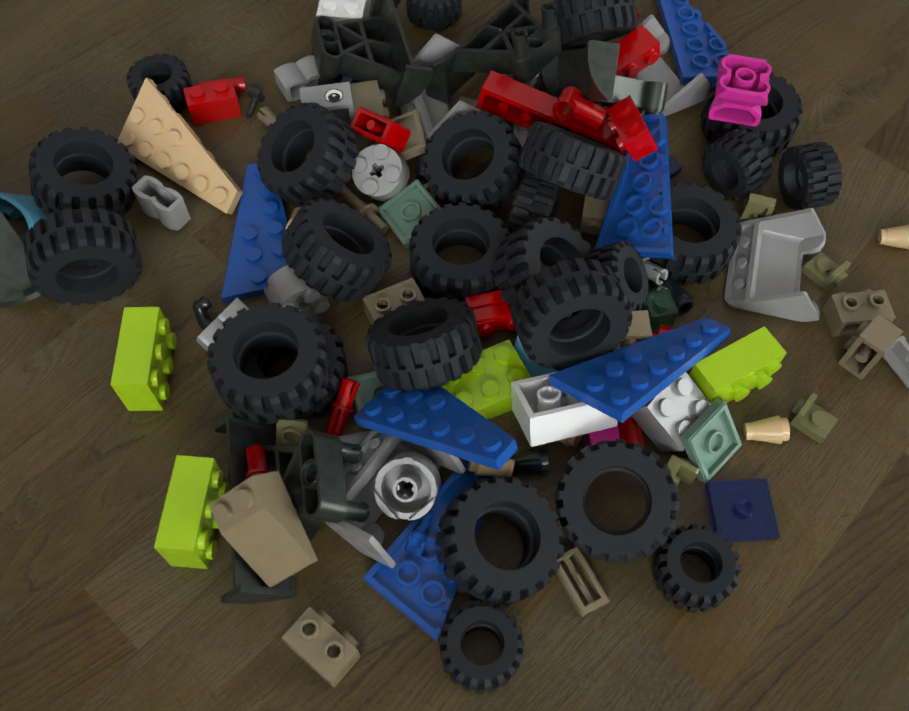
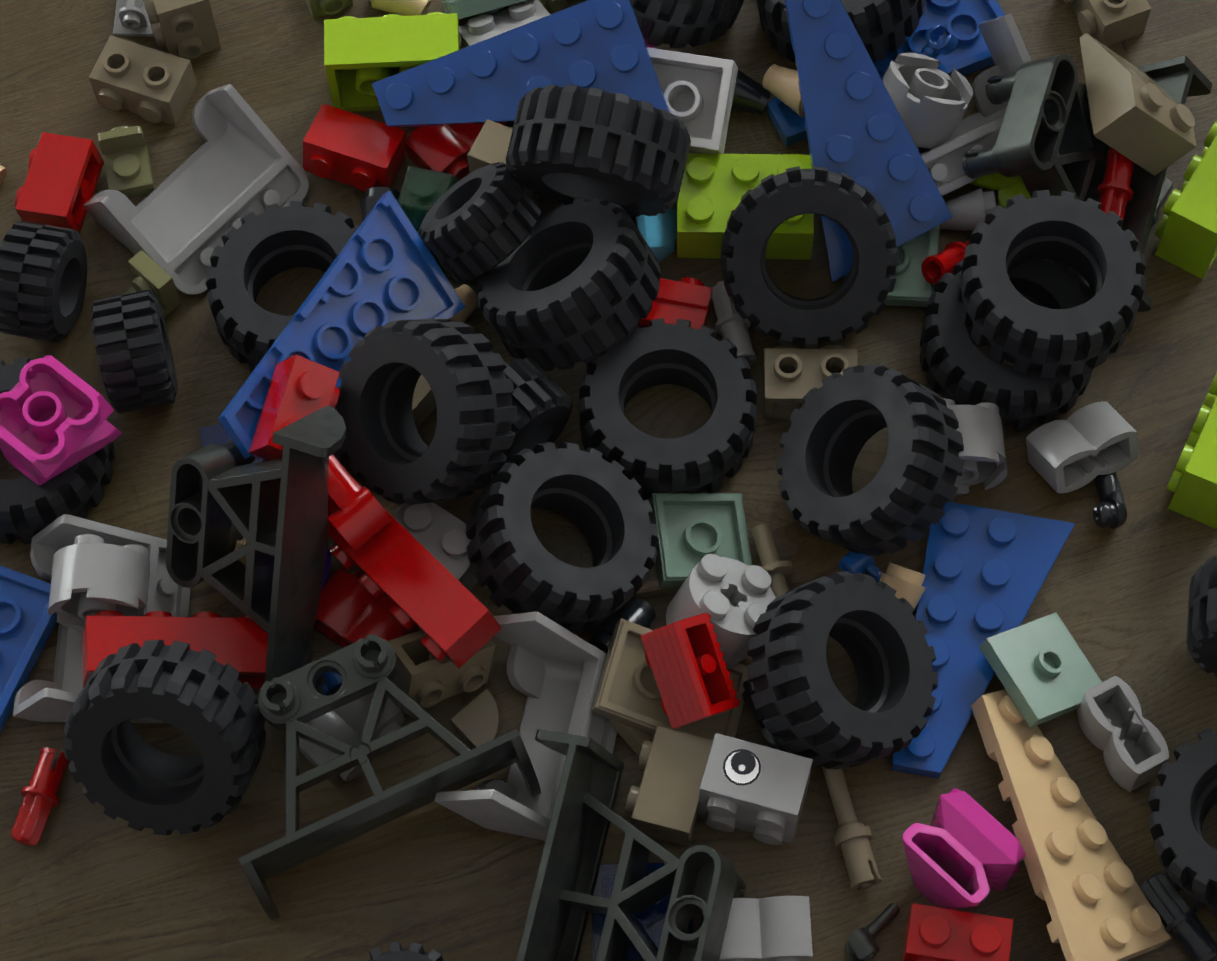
camera: 150 degrees left, 5 degrees up
(212, 220) = (1041, 668): none -> sand green plate
(220, 121) = (960, 853): none -> dark pink piece
(668, 66) = (97, 579): none -> light grey brick
(725, 310) = (353, 149): none -> red brick
(847, 236) = (59, 181): none -> red brick

